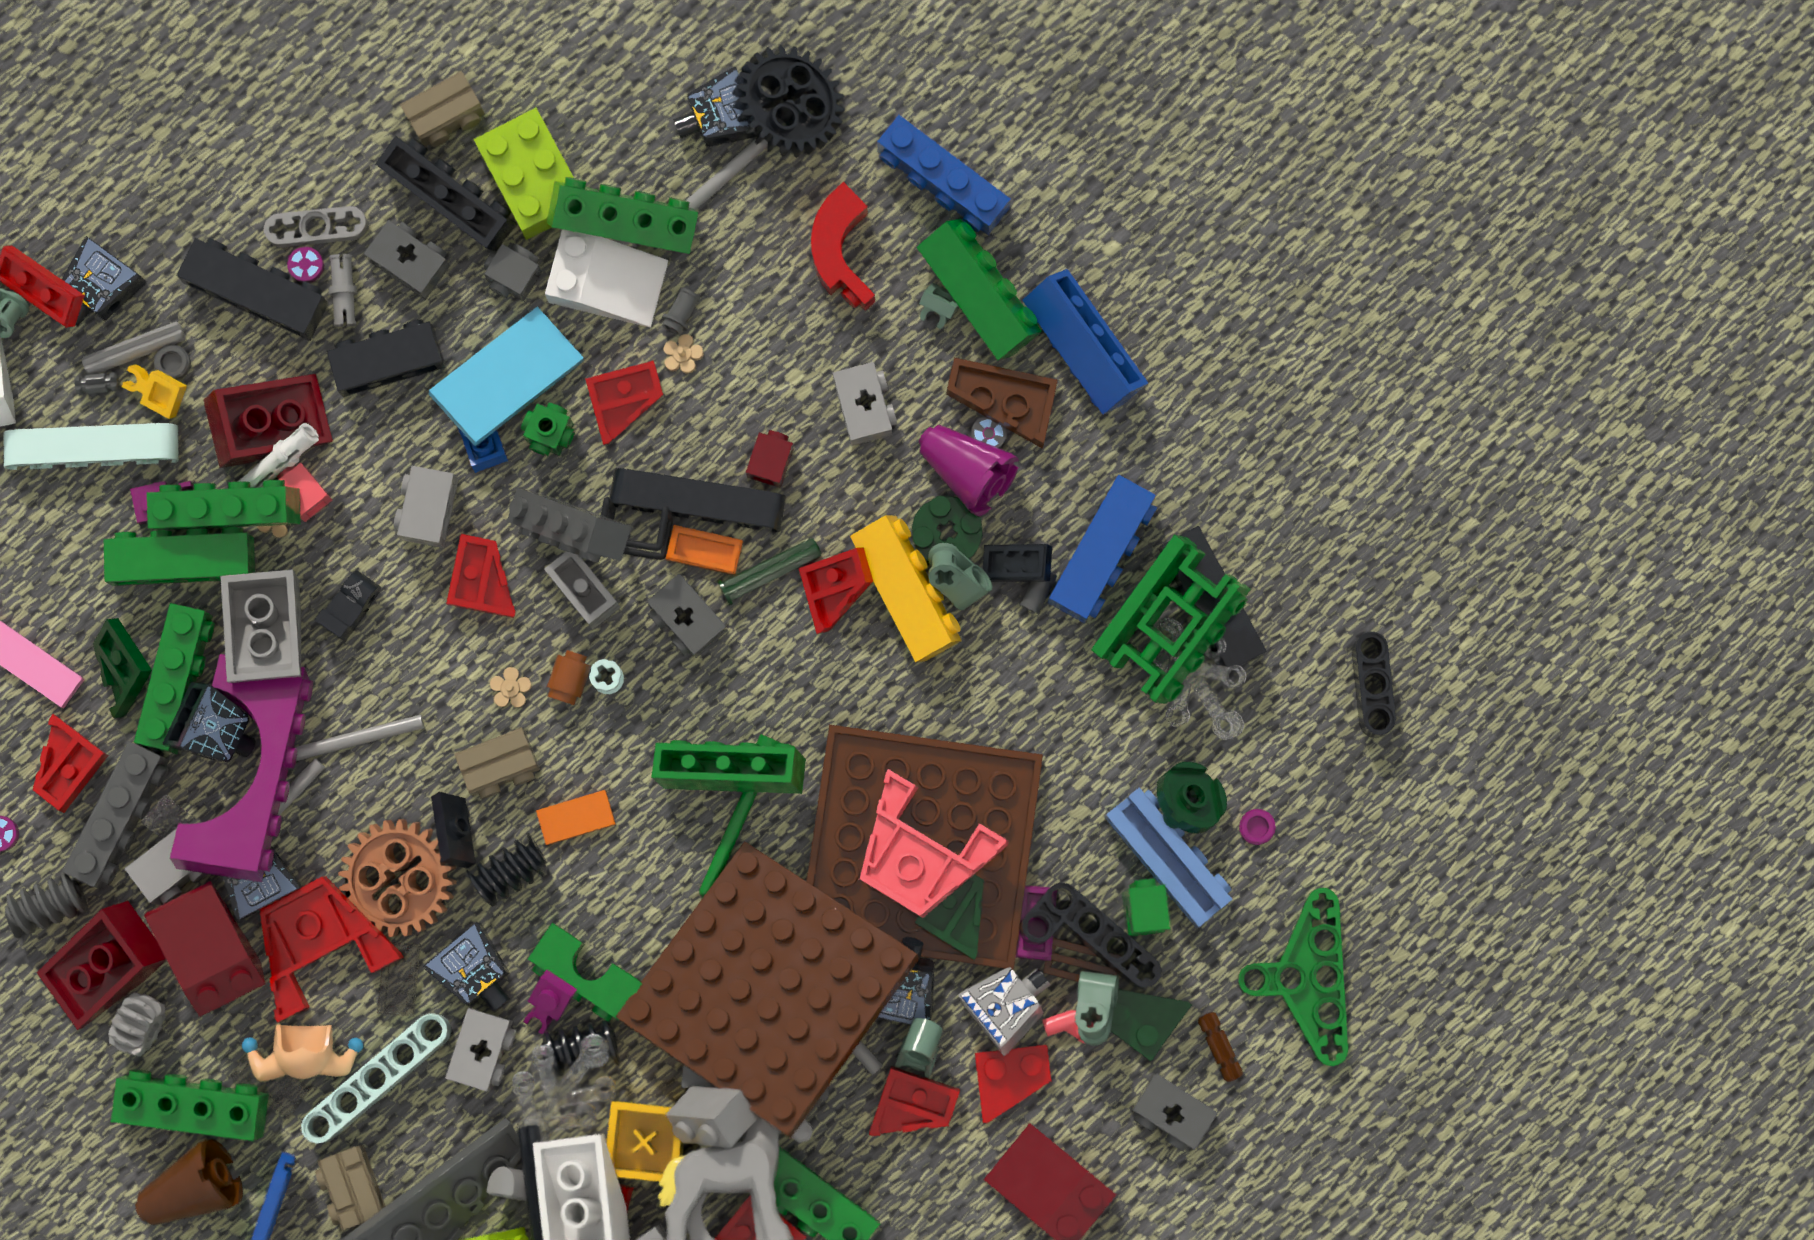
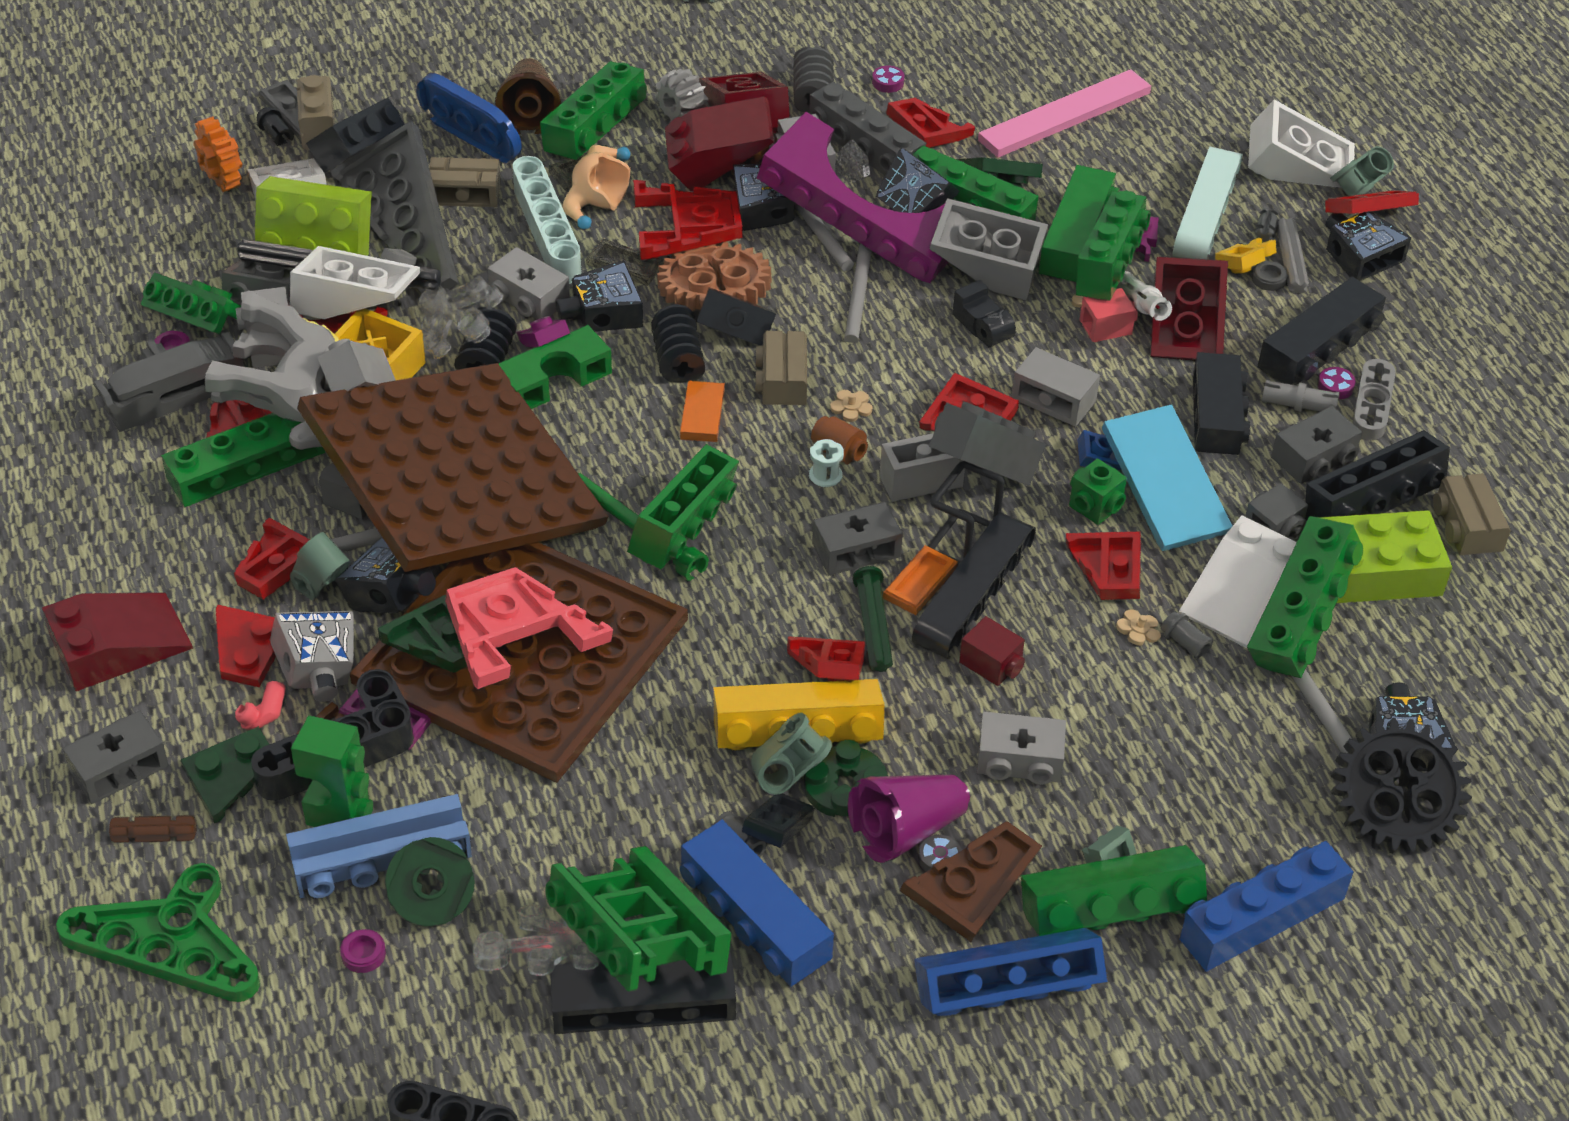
camera: 110 degrees right, 35 degrees down
(832, 223) = (1216, 774): red arch -> none
(1096, 1001) = (264, 716): sand green piece -> none

